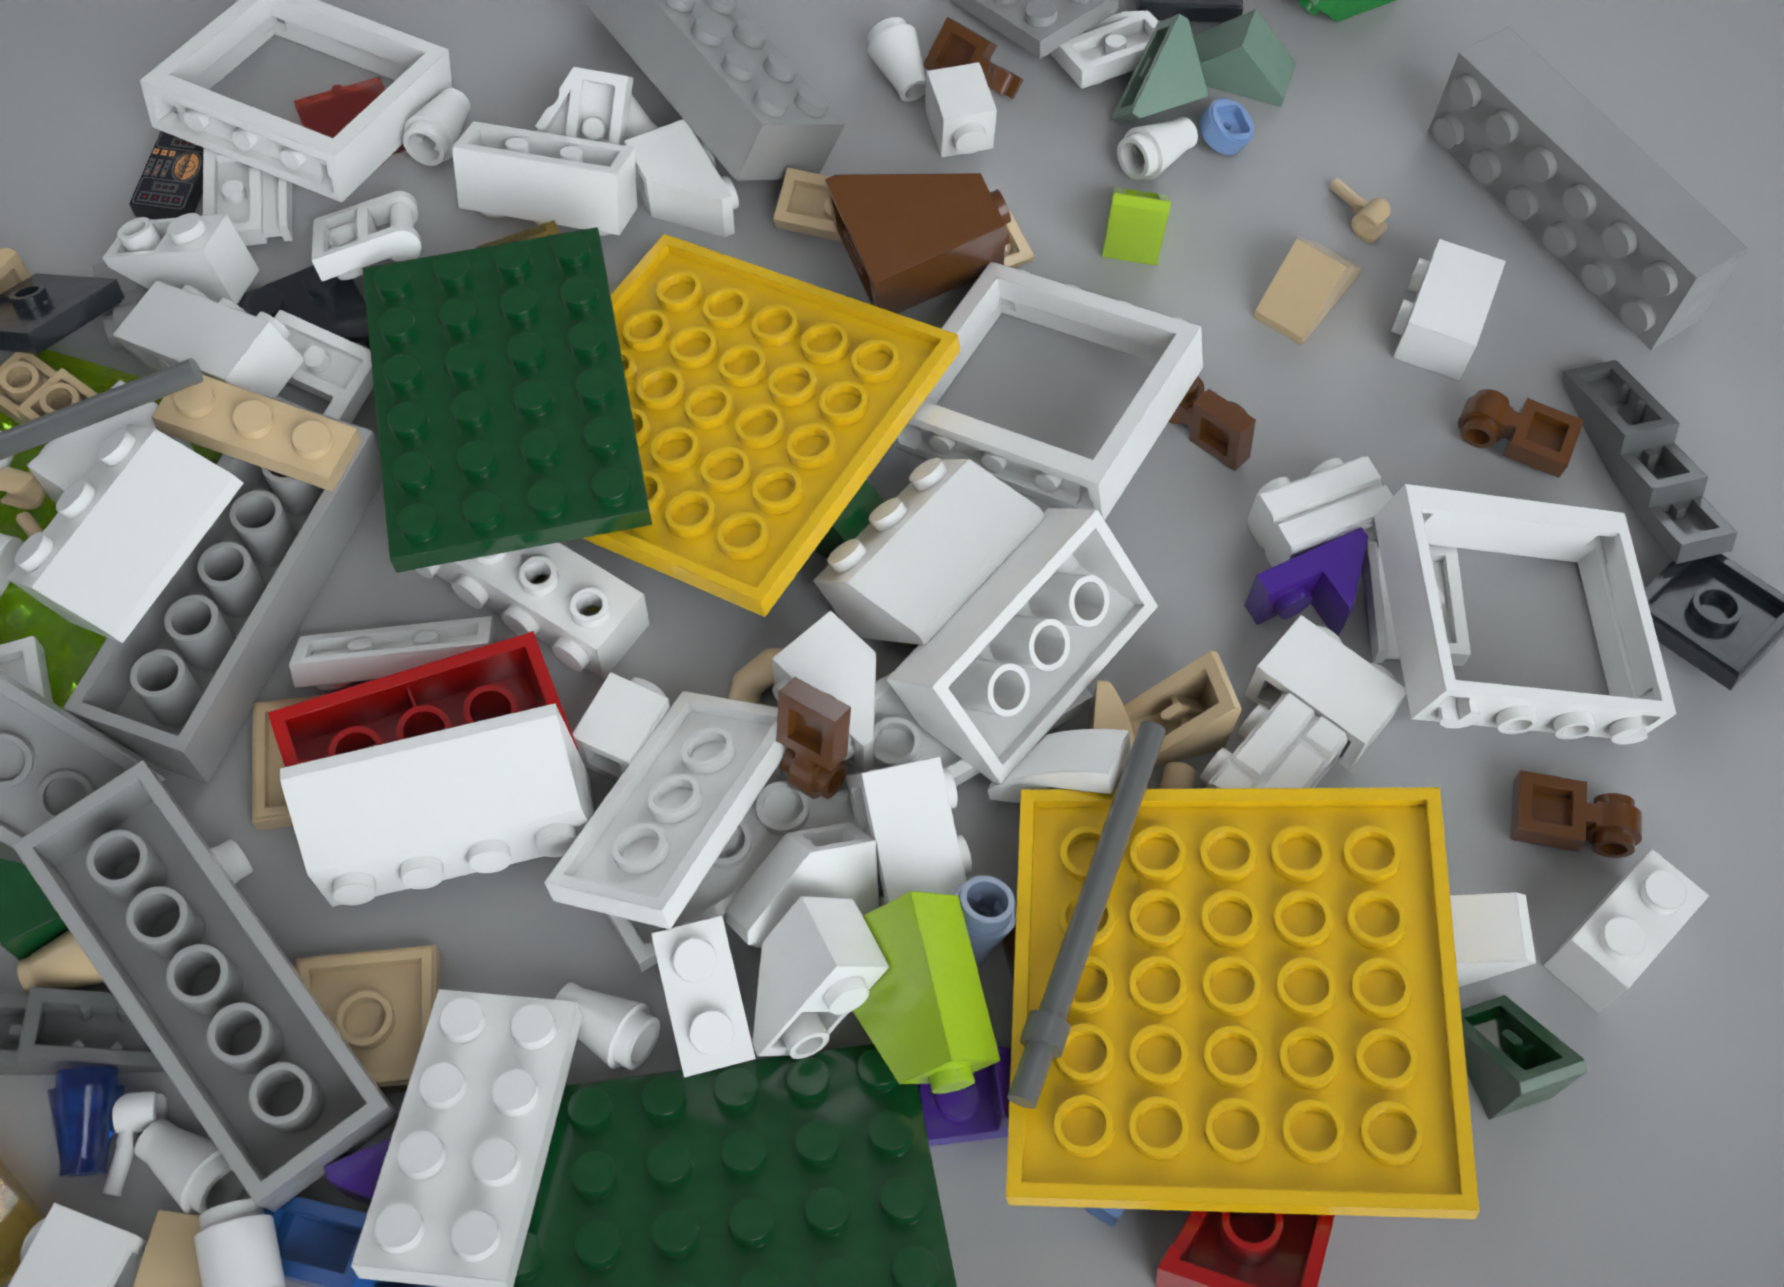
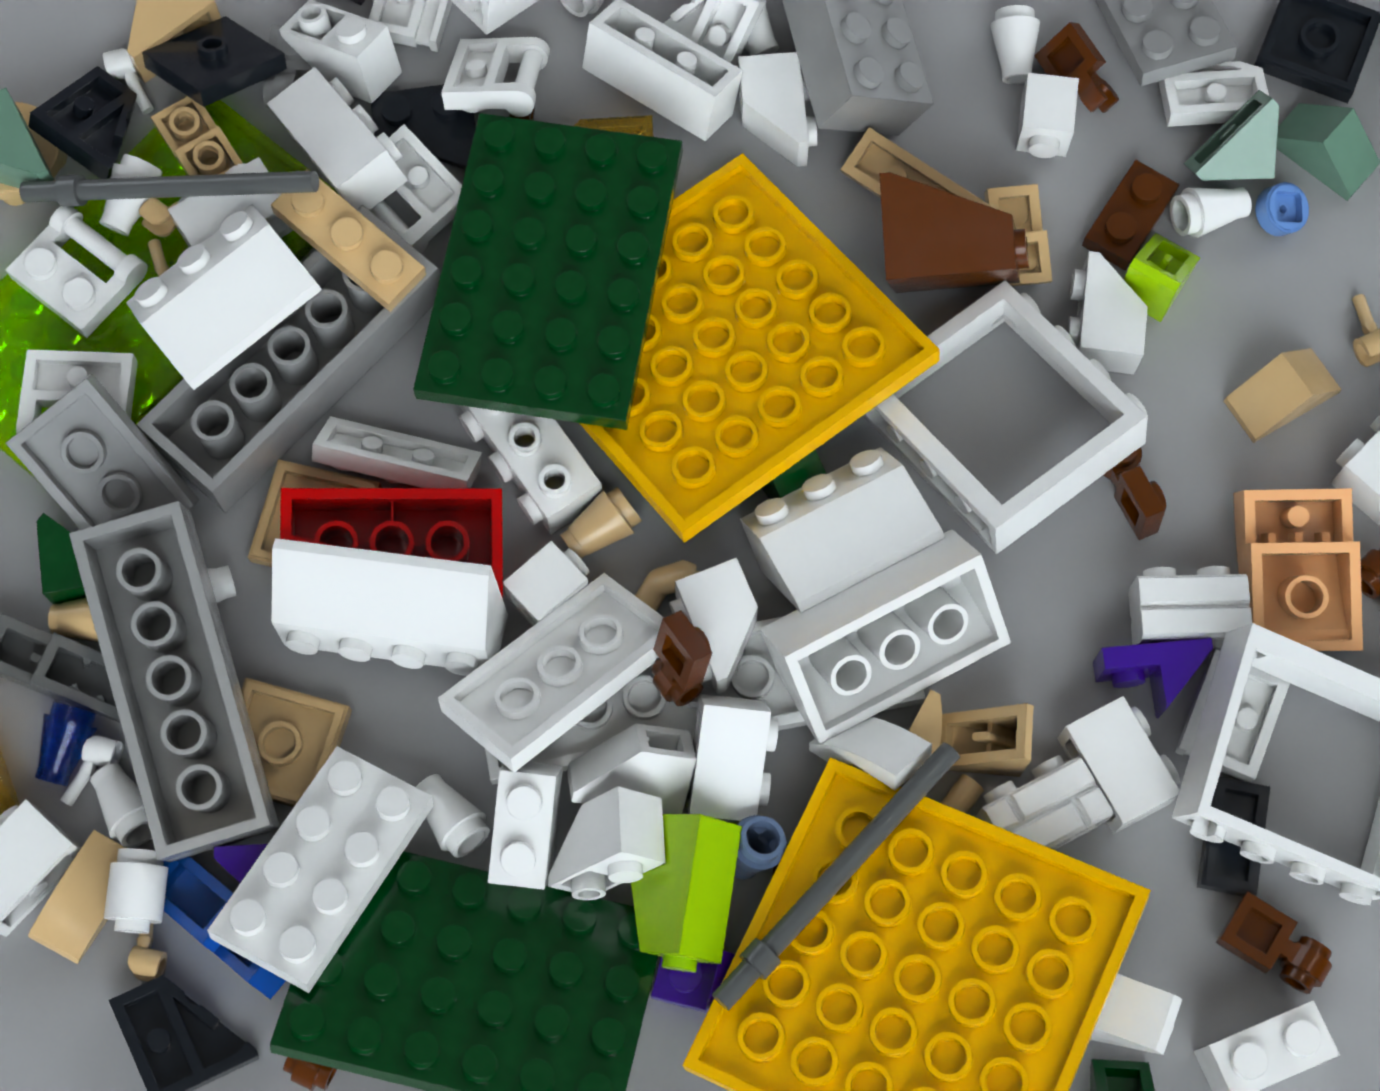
camera: 25 degrees right, 10 degrees up
(660, 640) = (601, 523): none -> tan cone
(1082, 177) = (1130, 214): none -> reddish brown plate
(1105, 260) = (1108, 317): none -> white slope
(1407, 424) = (1302, 565): none -> light nougat slope
(1480, 754) = (1220, 863): none -> black tile

